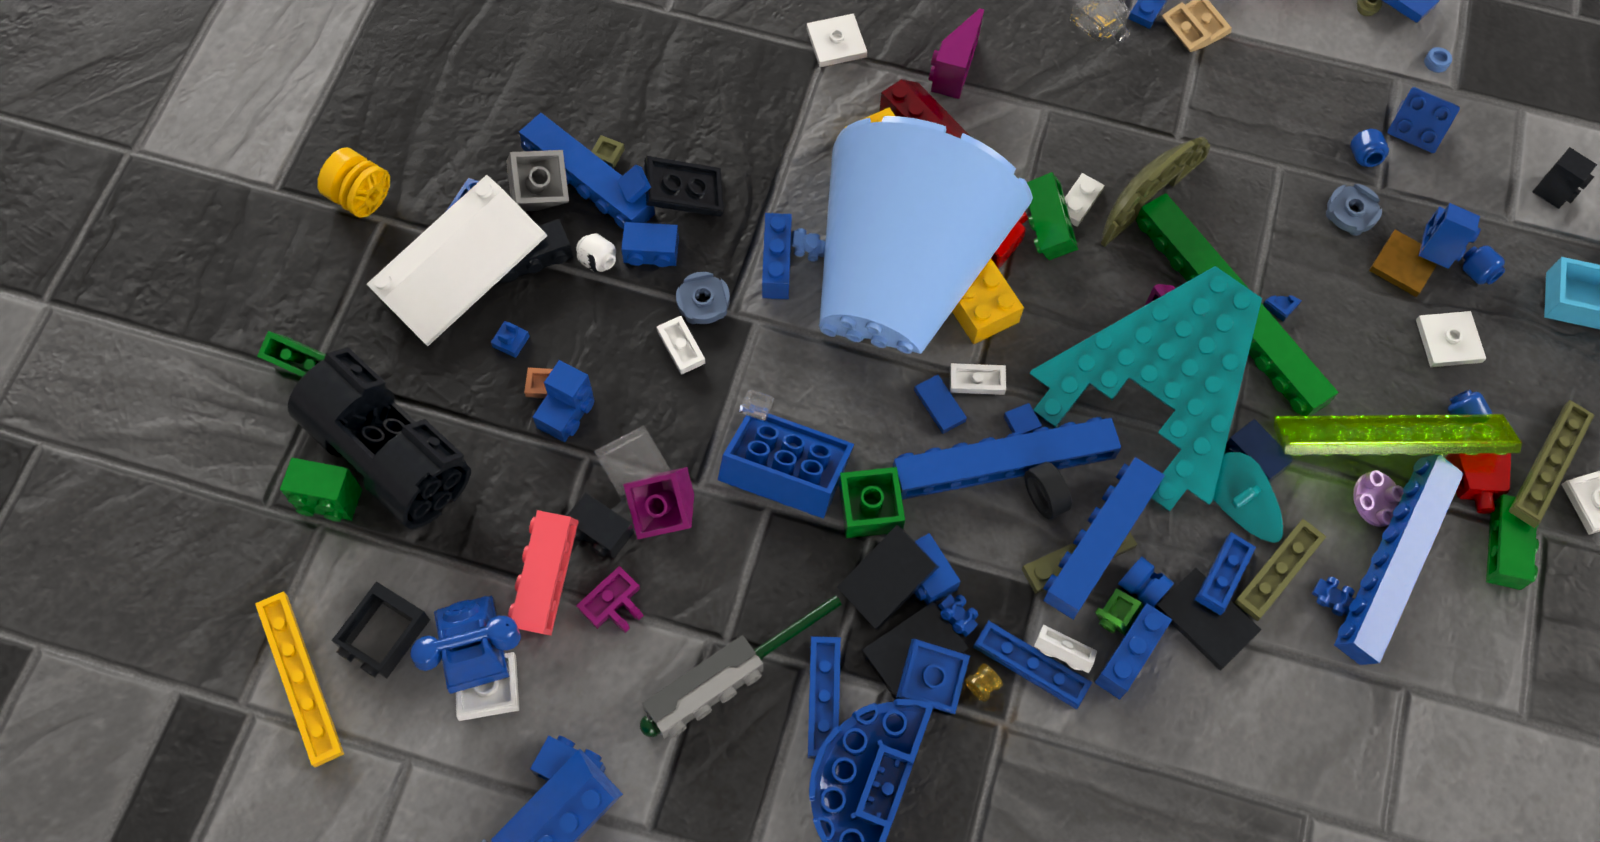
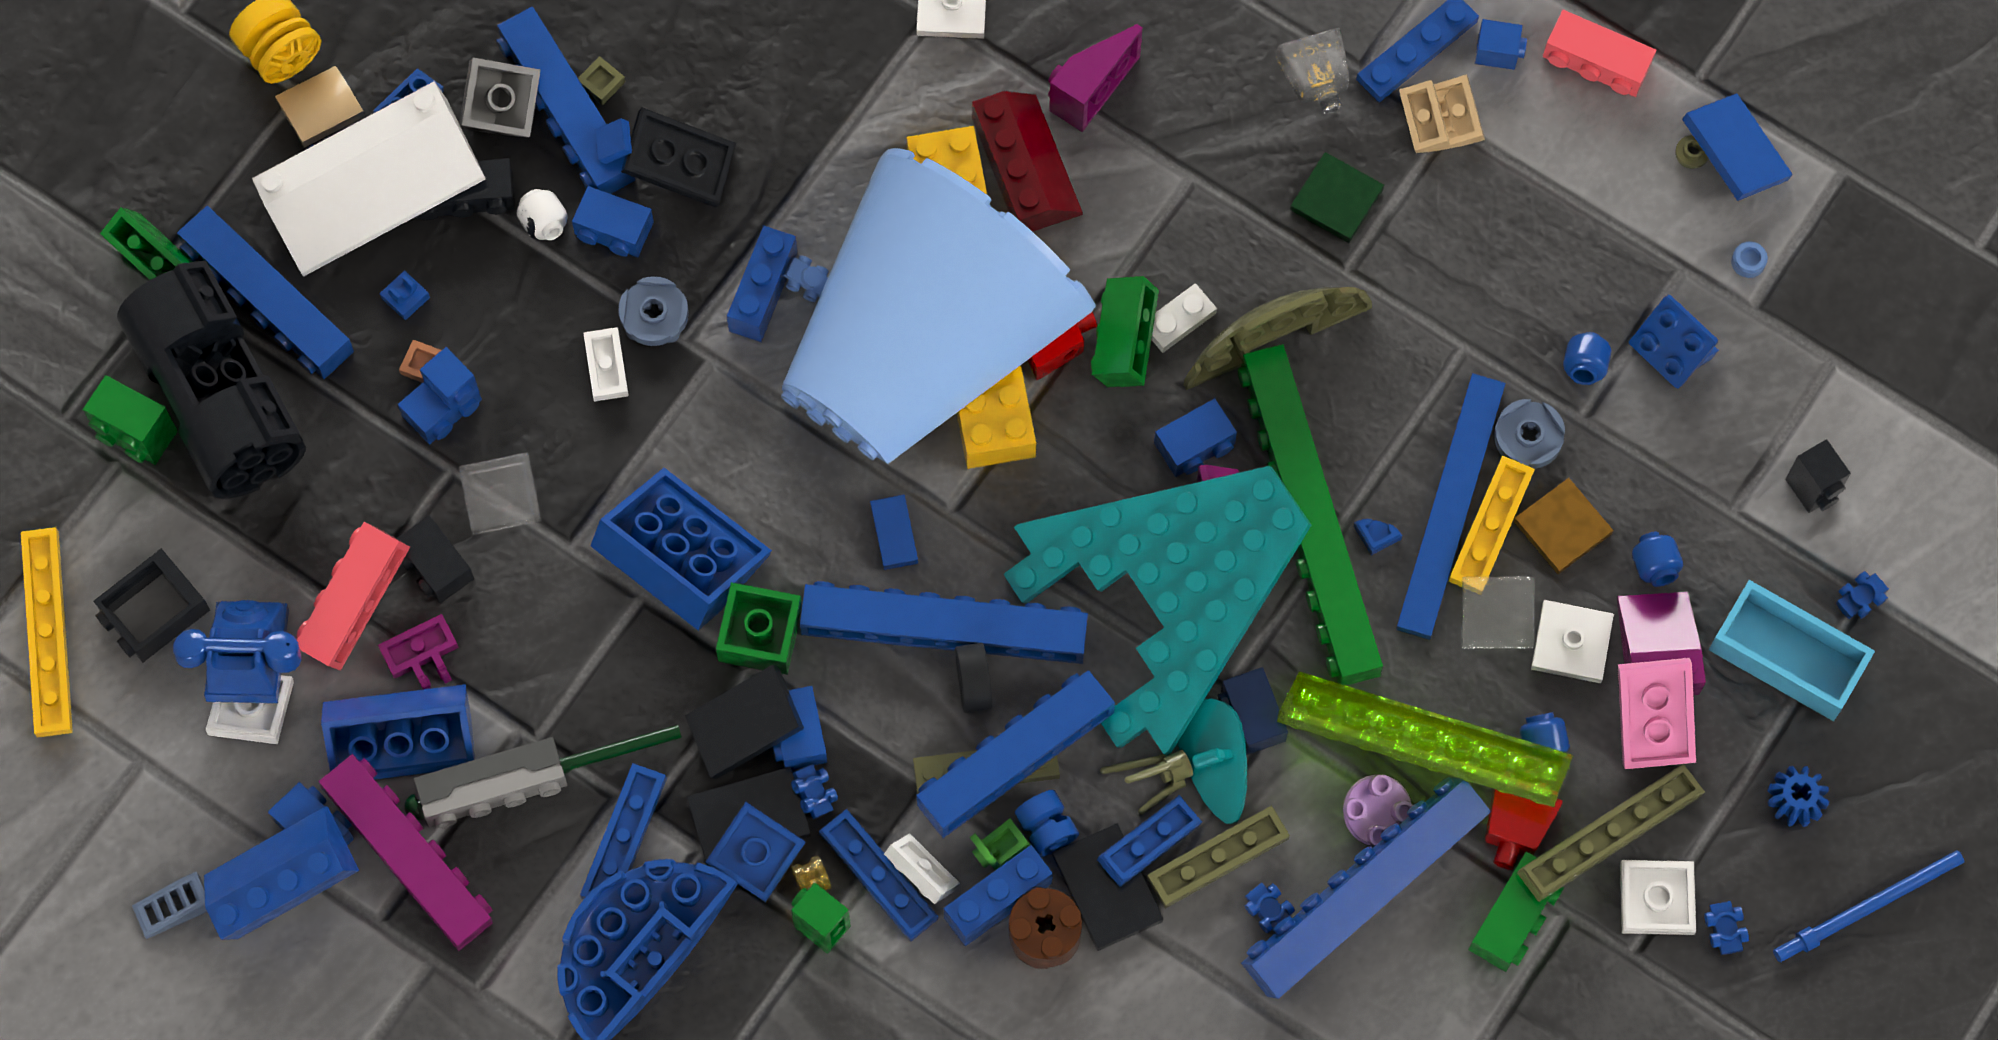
camera: 20 degrees right, 5 degrees up
(402, 223) = (320, 106): none -> tan slope
(405, 366) = (265, 293): none -> blue brick
(615, 671) = (401, 731): none -> blue slope
(655, 765) = (405, 851): none -> magenta brick
(661, 503) = (515, 553): magenta slope -> none
(757, 405) = (670, 467): clear tile -> none
(978, 379) = (950, 515): white plate -> none
(1007, 712) = (820, 917): none -> green brick
(1022, 419) = (986, 582): blue tile -> none
(1129, 275) = (1195, 438): none -> blue brick
(1151, 93) = (1337, 197): none -> dark green tile
(1193, 656) = (1053, 946): none -> reddish brown brick
(1215, 515) = (1170, 767): none -> olive plant
(1324, 274) = (1450, 506): none -> blue tile
(1359, 276) = (1492, 520): none -> yellow plate
(1394, 332) = (1498, 612): none -> clear tile
(1448, 235) = (1621, 508): blue brick -> none
(1514, 324) = (1661, 629): none -> slope
(1544, 367) = (1657, 713): none -> bright pink plate

